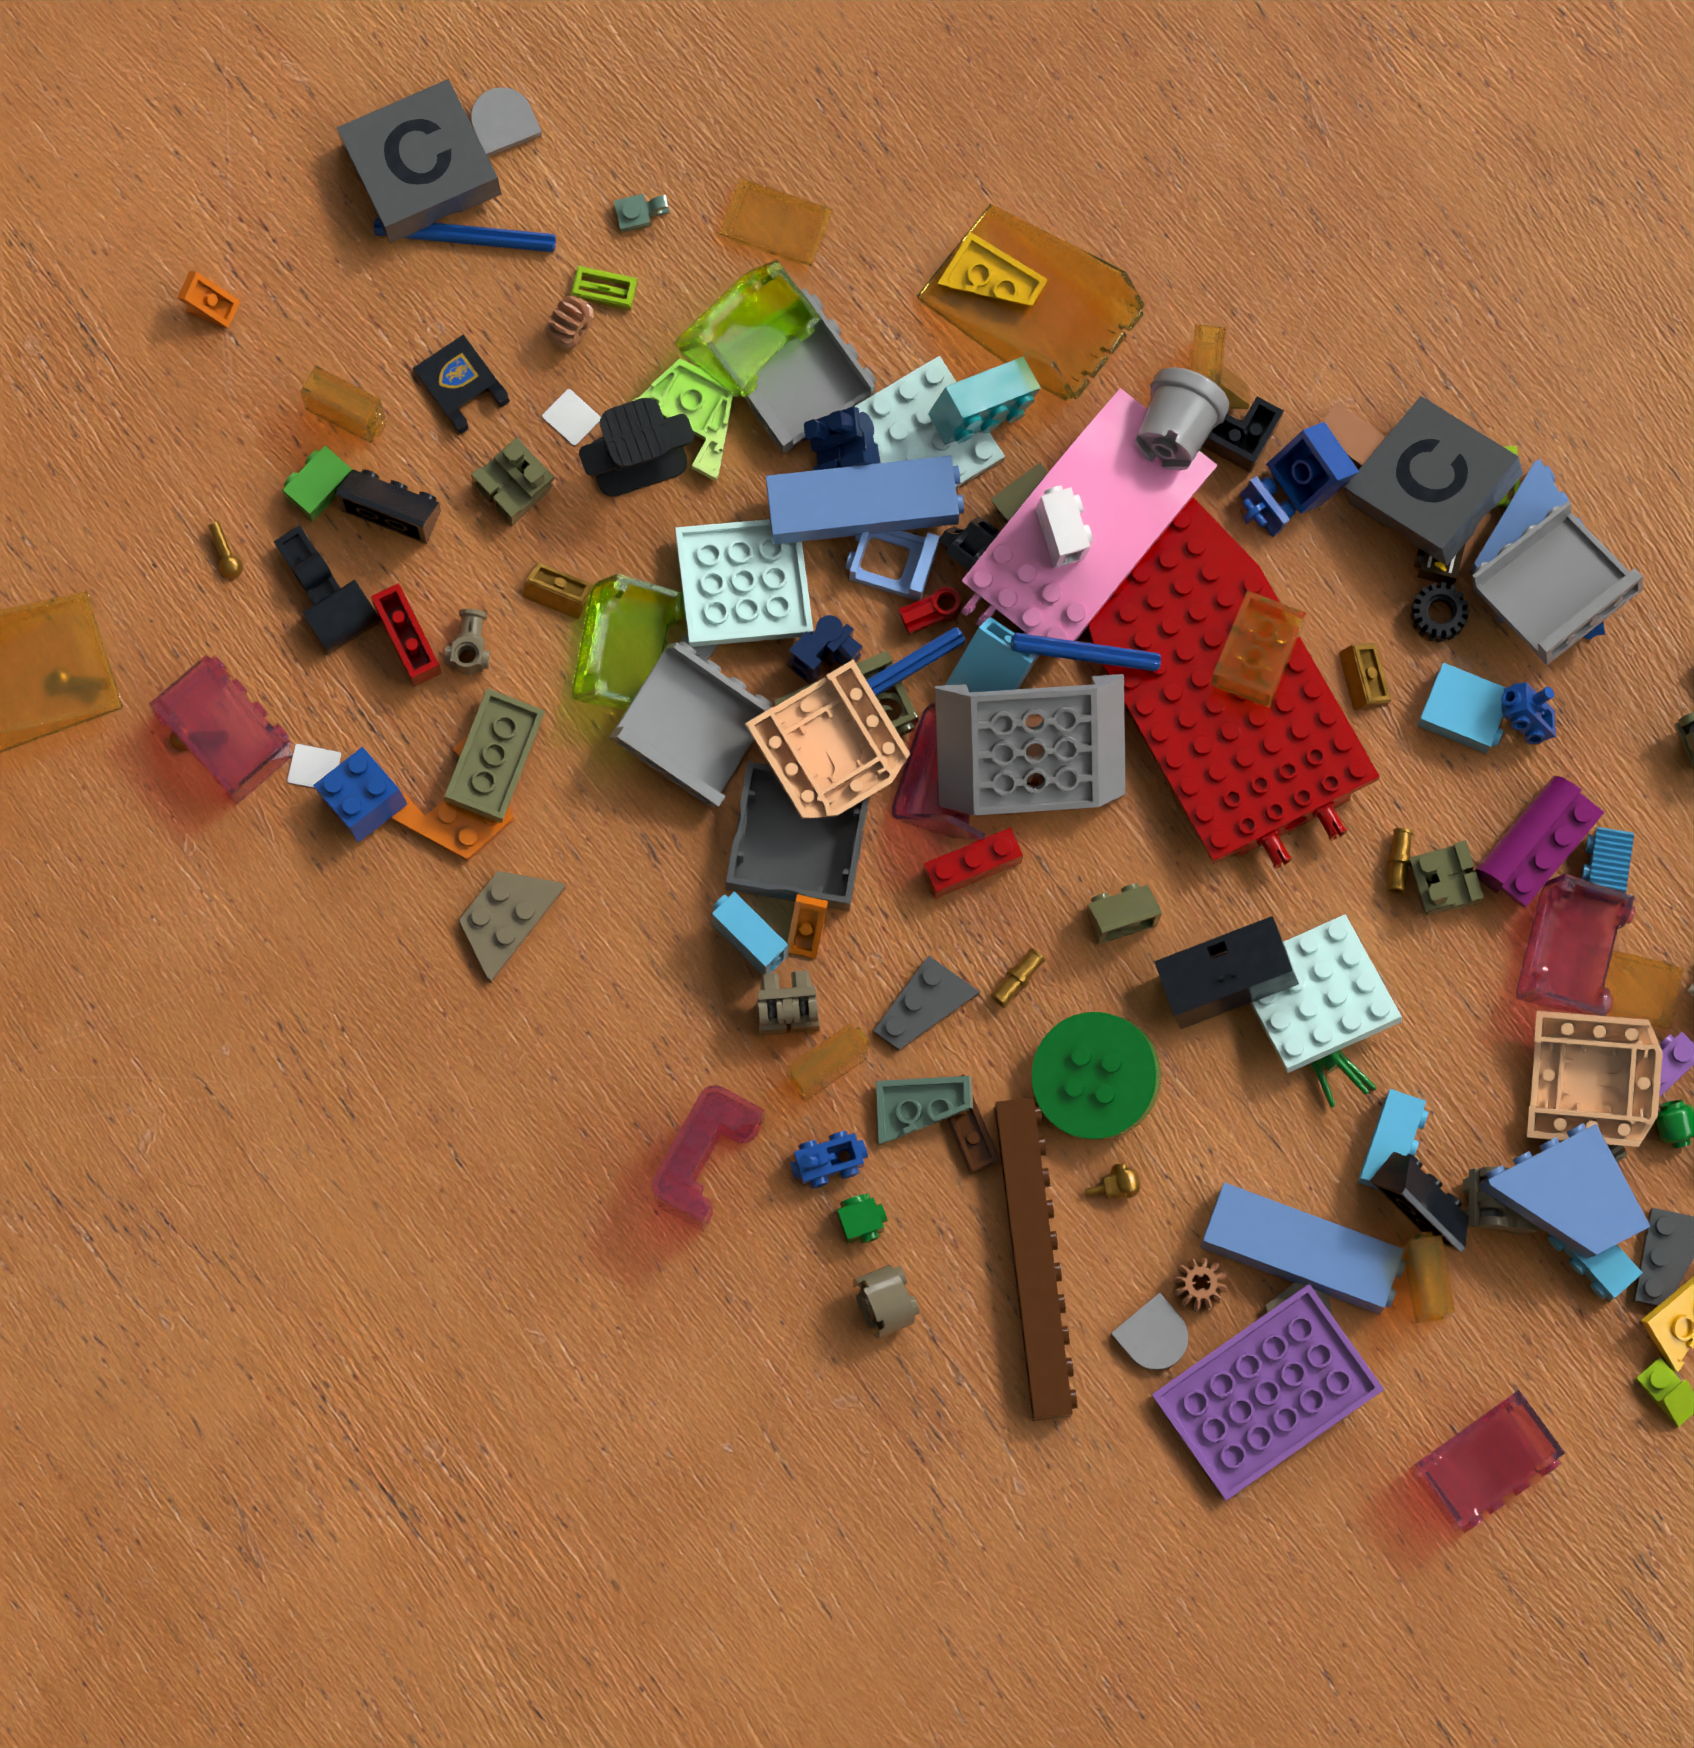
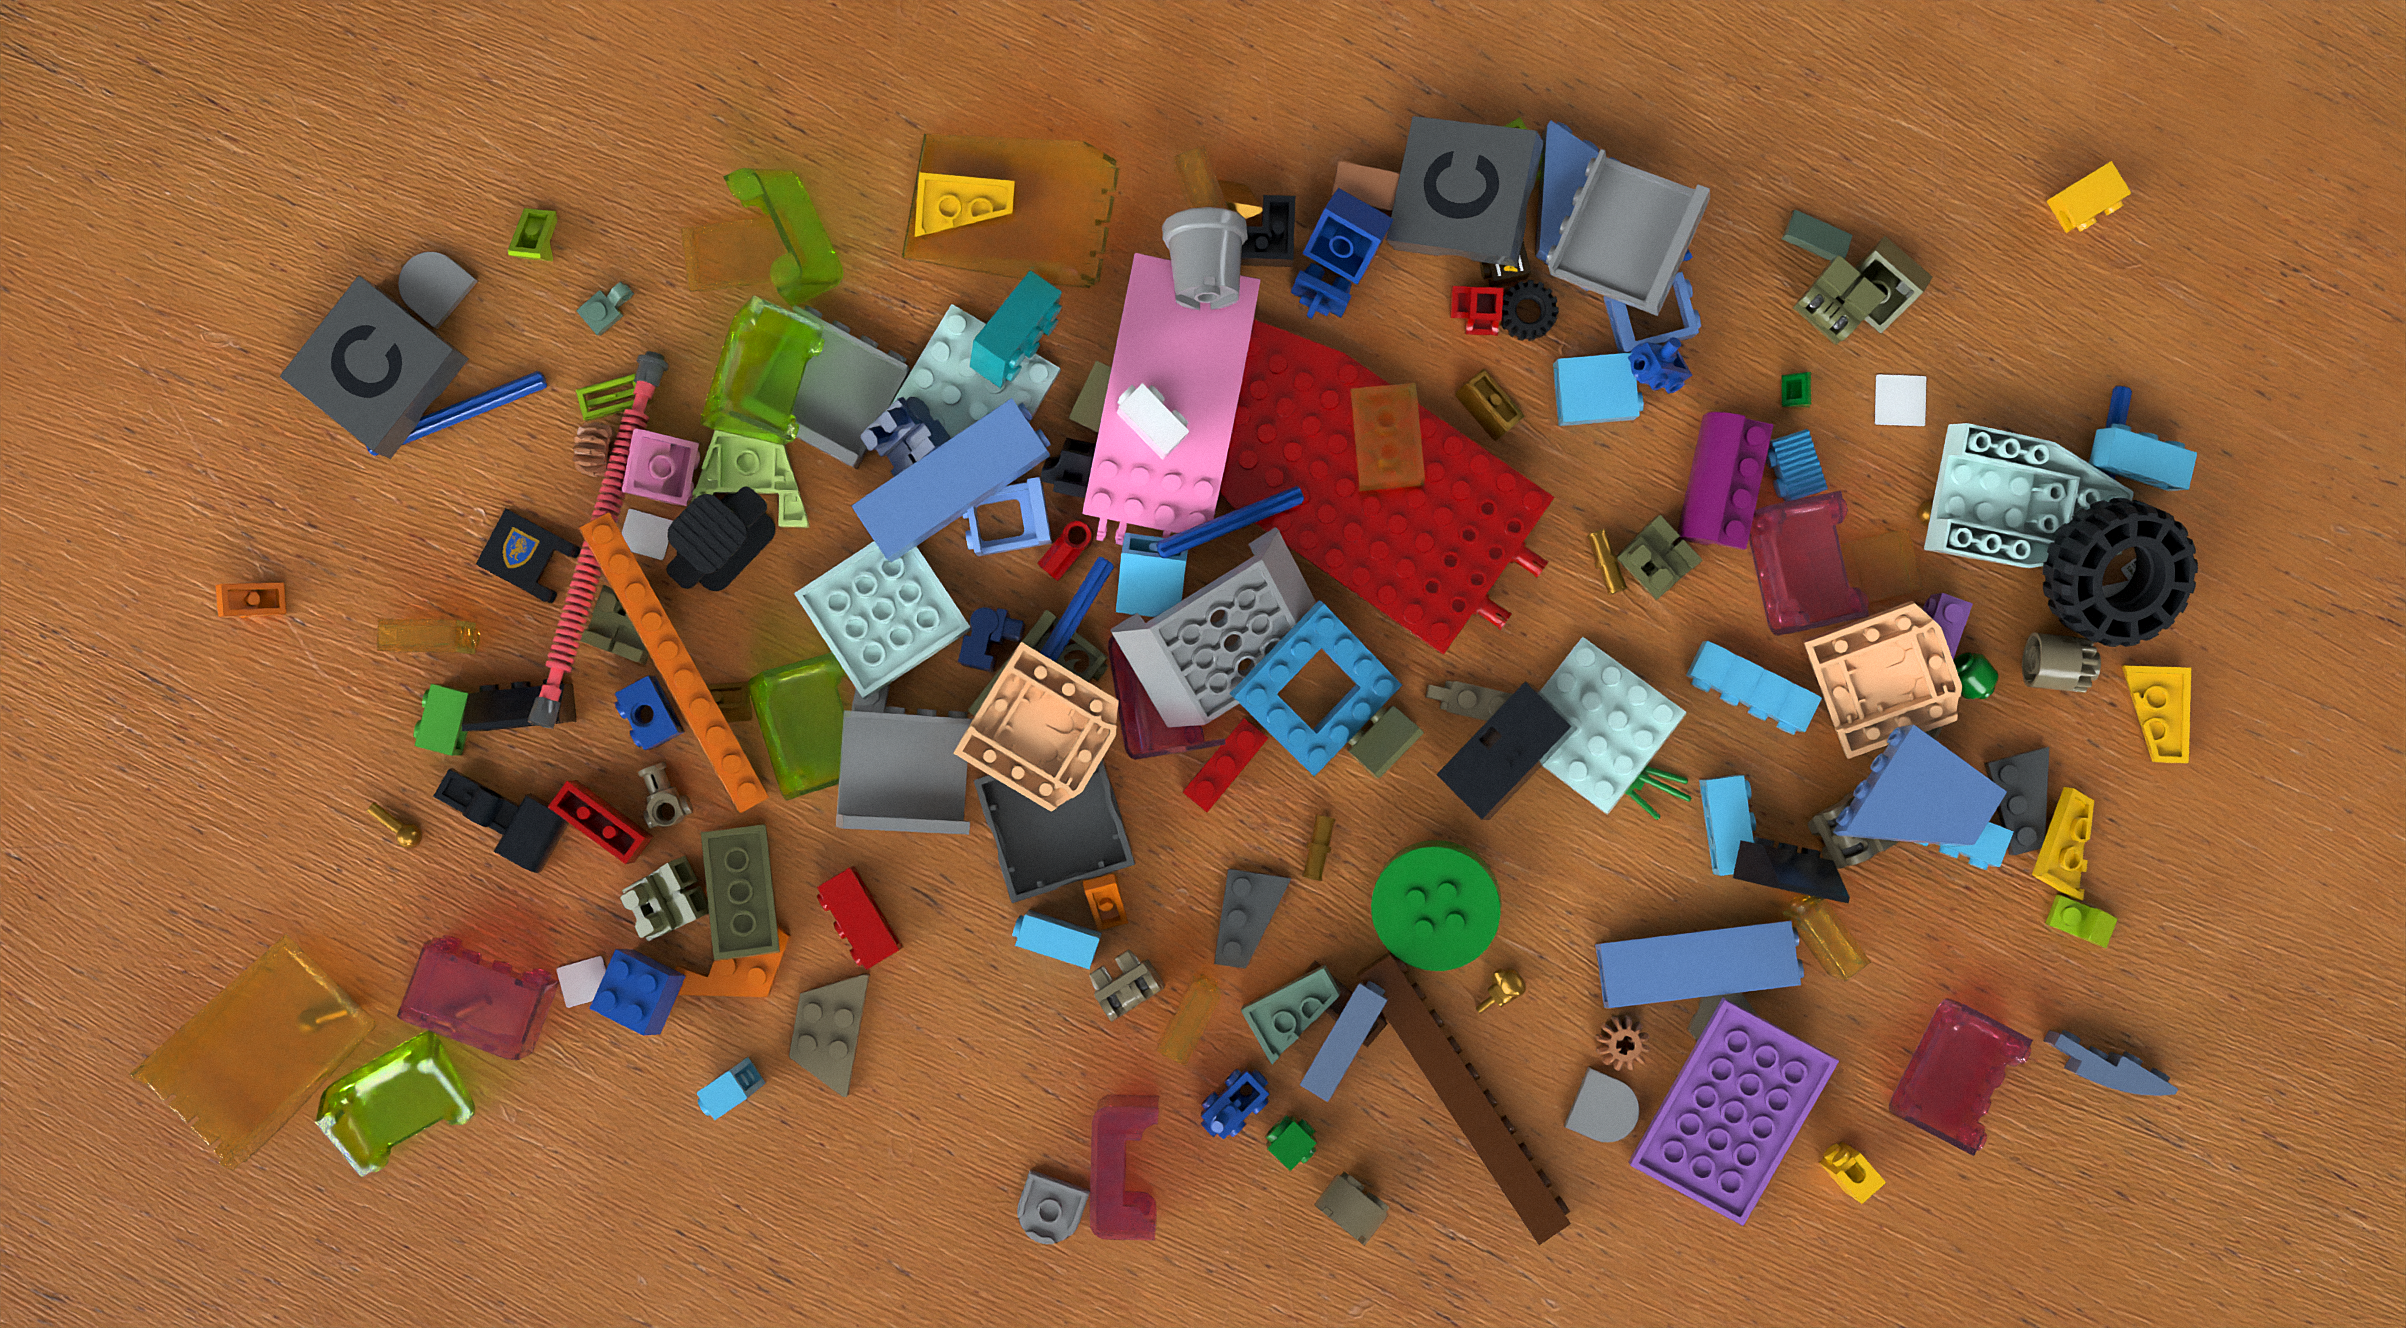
camera: 30 degrees left, 10 degrees up
(100, 782) = (393, 1101): none -> clear neon green windscreen
(399, 912) = (730, 1089): none -> medium azure brick
(426, 730) = (662, 899): none -> olive hips
(500, 548) = (664, 723): none -> blue brick
(534, 395) = (546, 705): none -> coral hose
(545, 530) = (673, 661): none -> orange brick
(583, 831) = (858, 918): none -> red brick
(611, 121) = (533, 235): none -> lime slope
(617, 1170) = (1050, 1208): none -> light grey tile
(618, 364) = (661, 467): none -> bright pink plate
(835, 261) = (811, 260): none -> clear neon green windscreen
(954, 1148) = (1344, 1040): none -> sand blue slope
(1037, 805) = (1259, 689): none -> dark azure plate
(1210, 913) = (1468, 699): none -> dark tan hinge
(1346, 1496) = (1851, 1171): none -> yellow brick
(1397, 587) = (1479, 307): none -> red brick
(1475, 1033) = (1753, 686): none -> medium azure brick
(1560, 698) = (1623, 330): none -> medium blue window
(1635, 1542) = (2110, 1070): none -> sand blue slope
(1643, 799) = (1796, 390): none -> green slope

